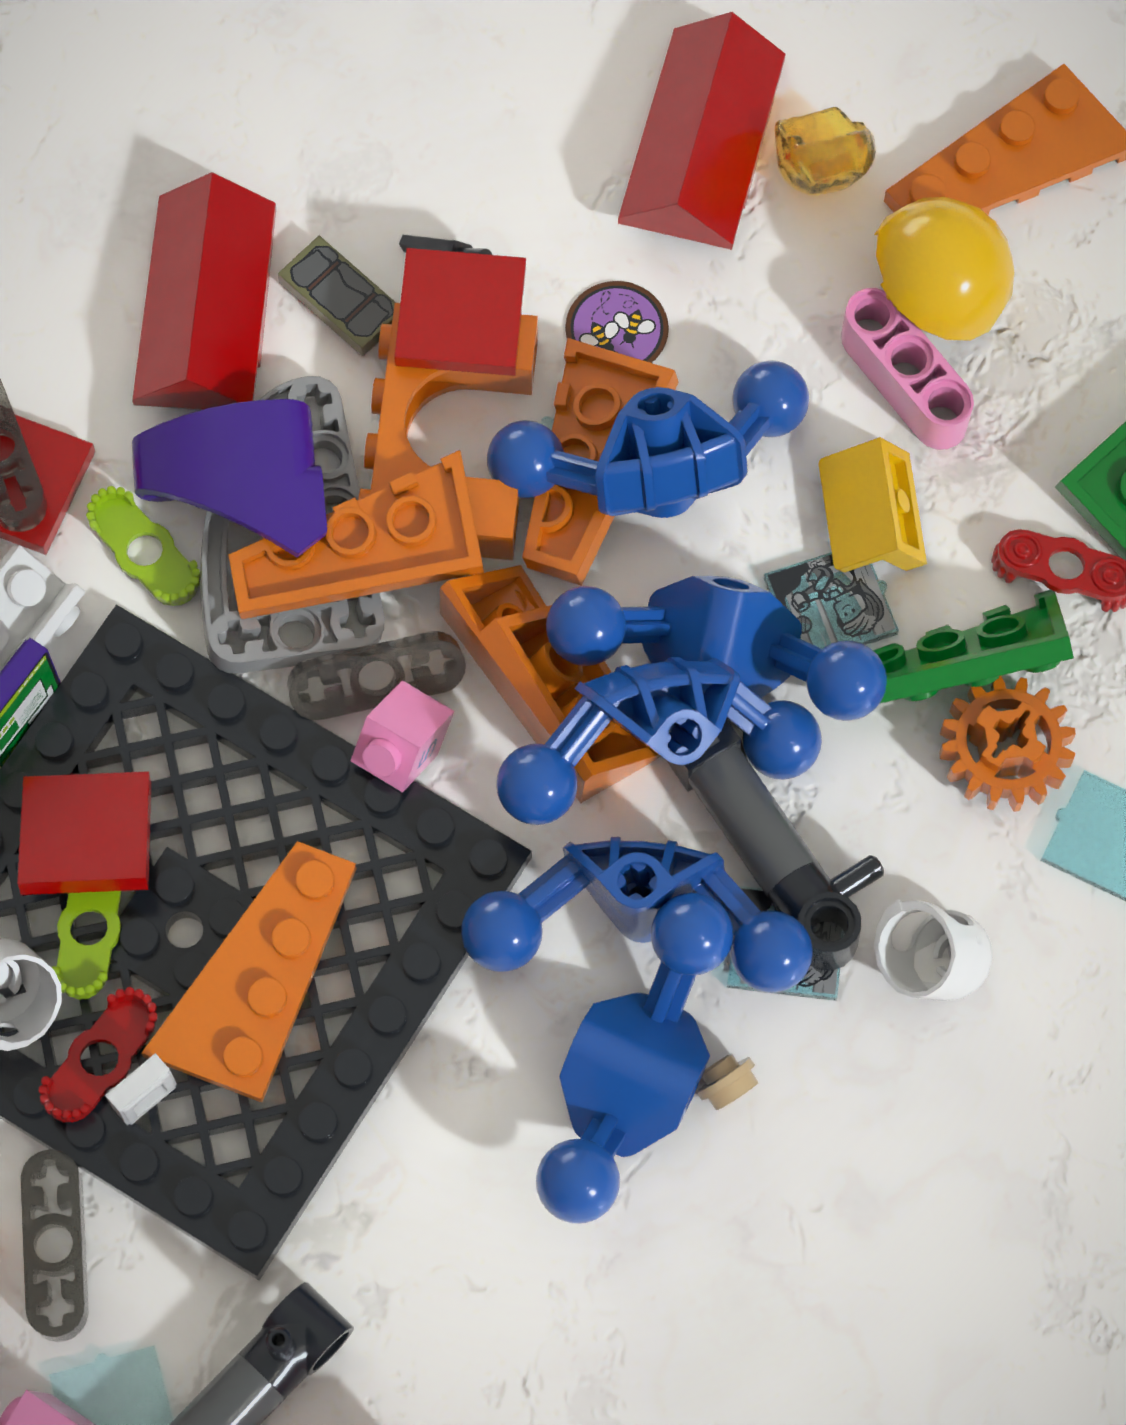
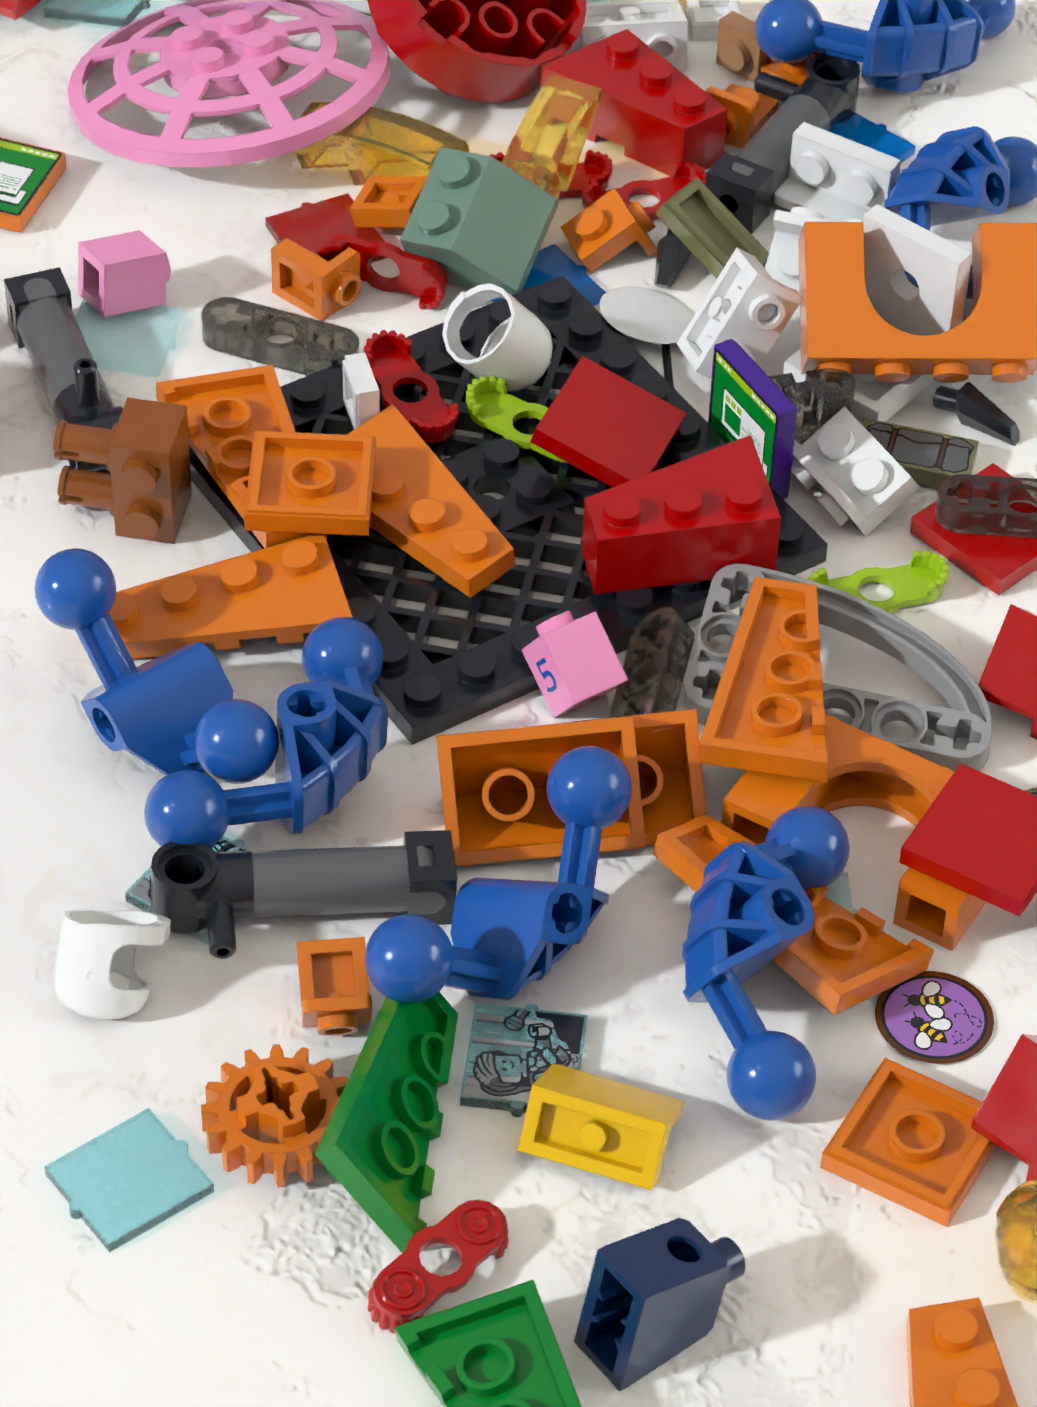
camera: 115 degrees right, 25 degrees down
(190, 699) = (682, 522): none -> red wedge
(242, 464) = (889, 633): dark purple panel -> none
(267, 1159) = (222, 423): none -> orange wing
(316, 1052) = (310, 483): none -> orange tile
(358, 1239) = (147, 467): none -> dark orange brick
(464, 1070) = (249, 596): none -> orange wing
(672, 710) = (458, 785): blue piece -> none
(727, 1081) = (103, 773): tan plate -> none
(756, 293) = (911, 1143): none -> orange tile
(860, 764) = (333, 985): none -> orange bracket
(908, 394) = (761, 1207): bright pink beam -> none
(945, 267) = (840, 1276): yellow cylinder -> none
(1029, 386) = (653, 1298): none -> dark blue torso

